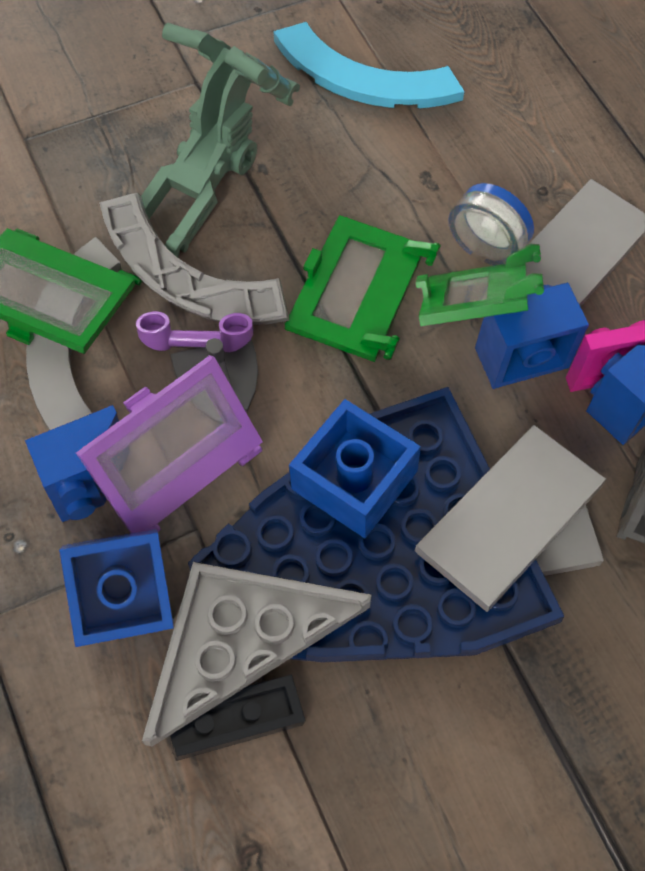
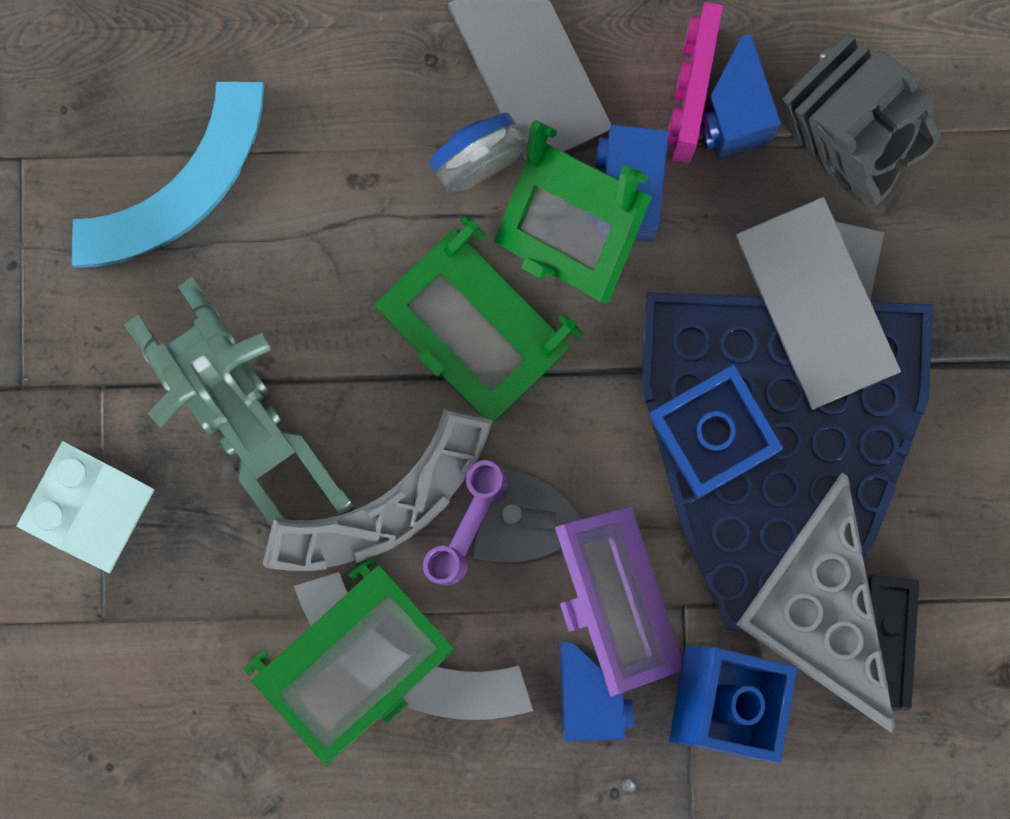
camera: 65 degrees left, 20 degrees up
(101, 89) = (85, 507): none -> light aqua slope

